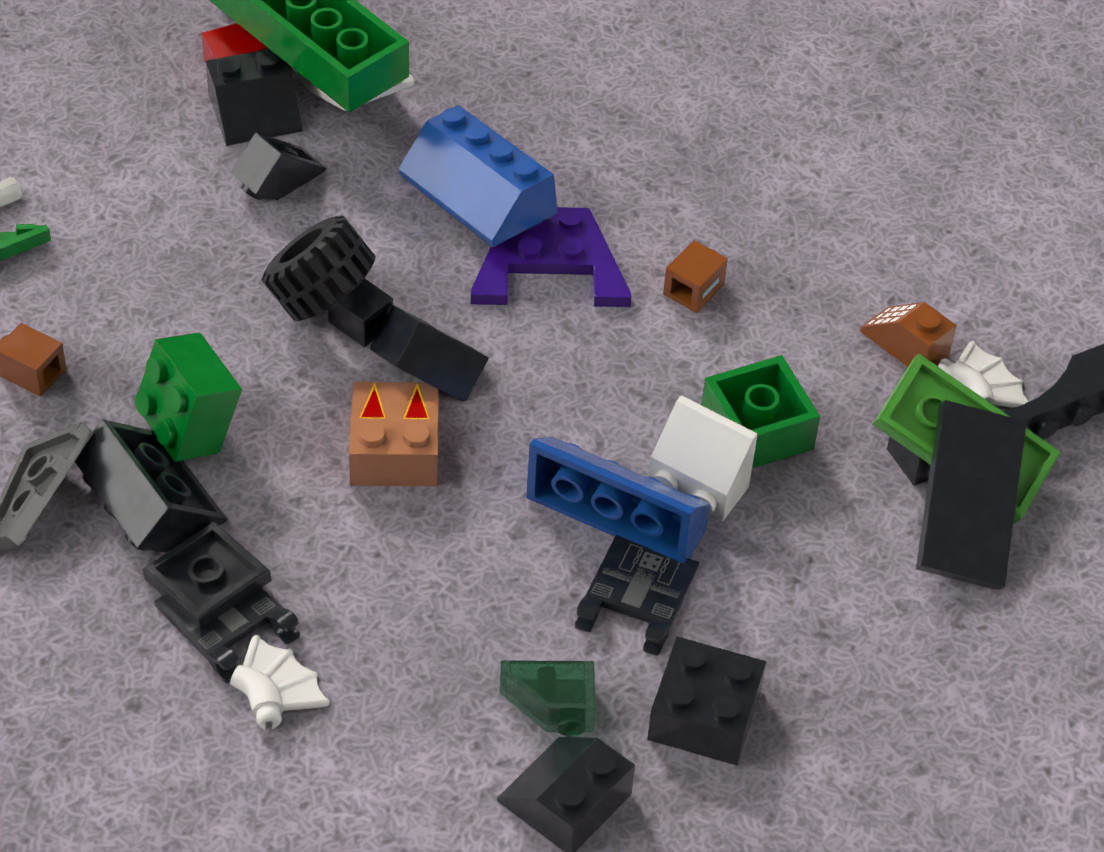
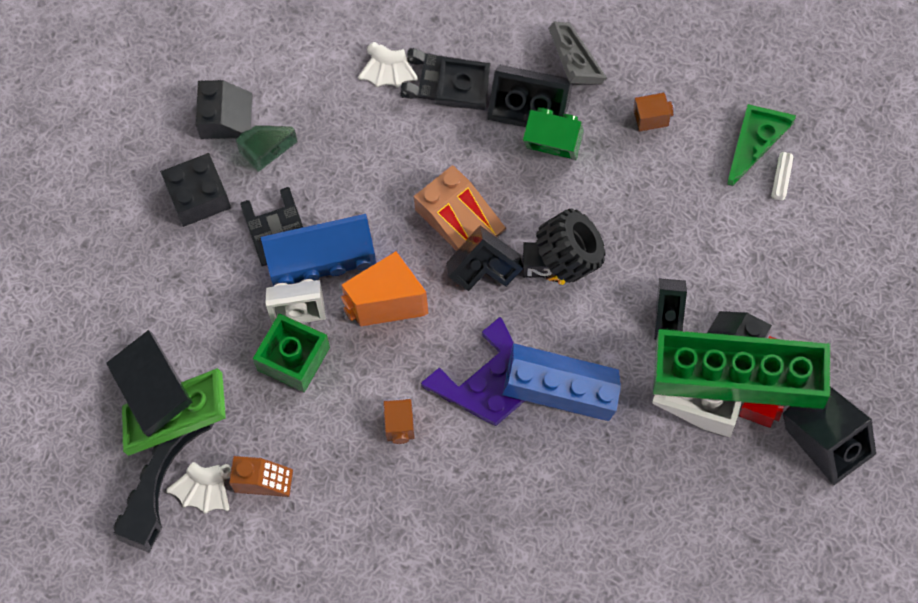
camera: 145 degrees right, 15 degrees up
(589, 386) = (384, 293): none -> orange slope

